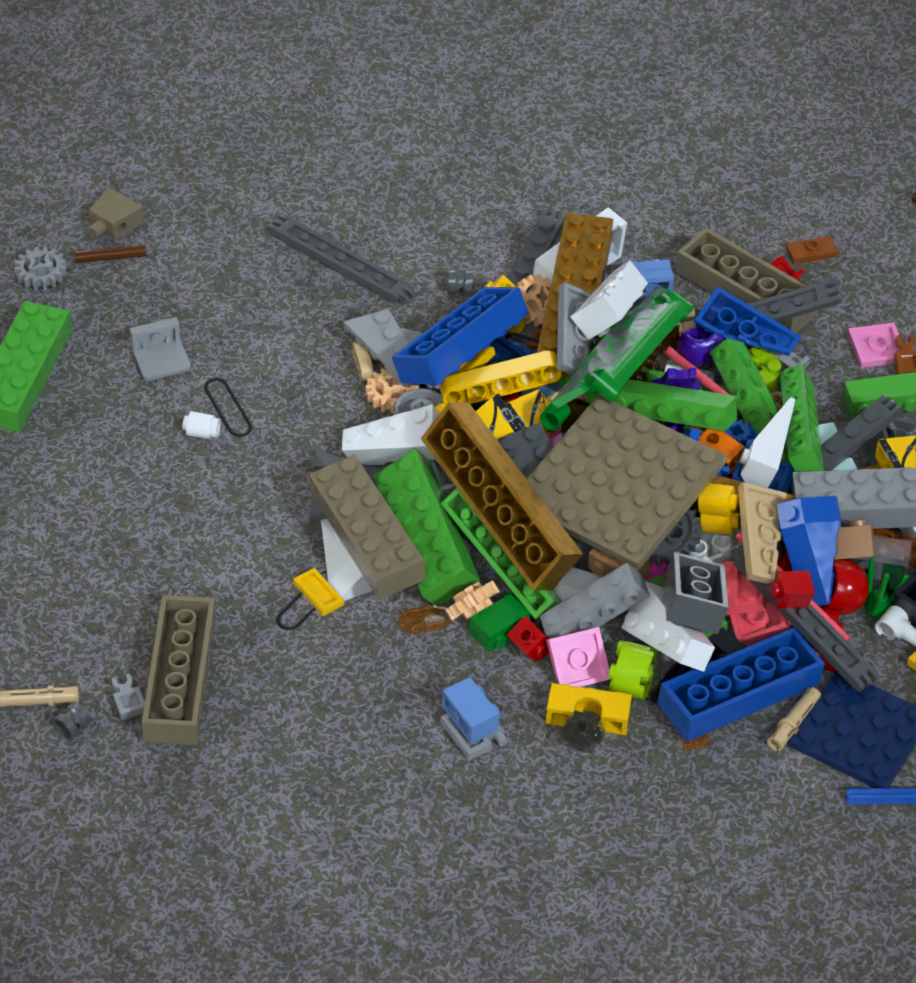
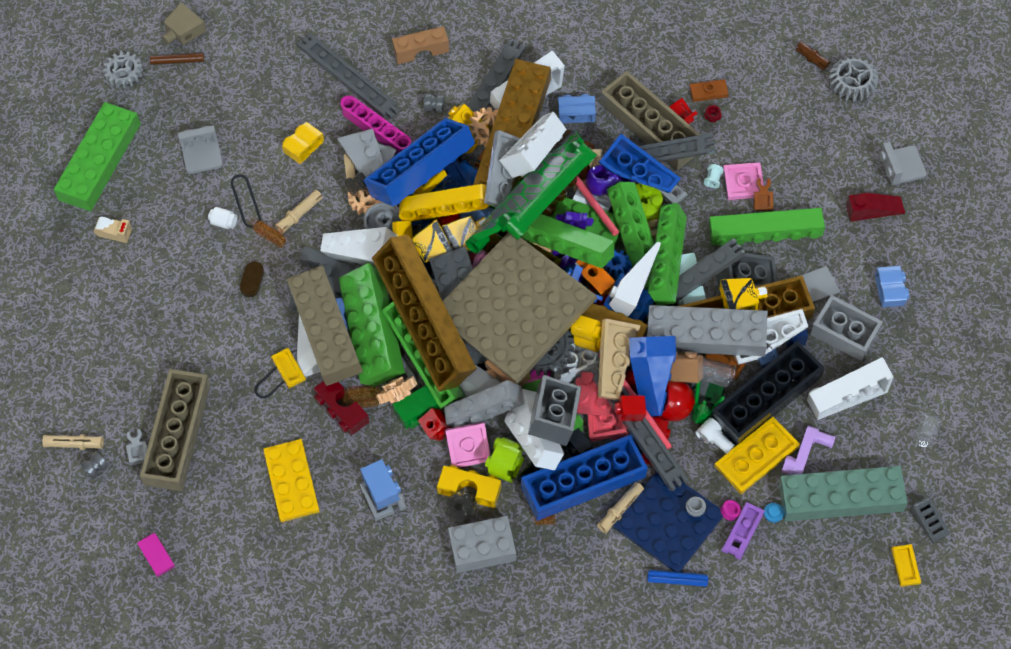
camera: 10 degrees right, 15 degrees up
(55, 447) = (113, 229): none -> tan leg
(173, 822) = (156, 554): none -> dark pink tile
(252, 493) = (252, 279): none -> dark brown tile
(267, 439) = (269, 234): none -> clear orange tile
(294, 335) = (303, 142): none -> yellow brick
(296, 418) = (292, 217): none -> tan pin
(345, 721) = (291, 480): none -> yellow plate
(367, 299) = (371, 120): none -> dark pink beam
(378, 370) = (356, 184): none -> clear smoke wheel
(411, 641) = (350, 418): none -> dark red arch
(414, 221) = (409, 45): none -> medium nougat arch
(619, 773) = (482, 544): none -> light grey brick
(822, 272) = (713, 109): none -> dark red plate
(838, 340) = (713, 176): none -> light aqua bush
(895, 706) = (695, 506): none -> light grey plate

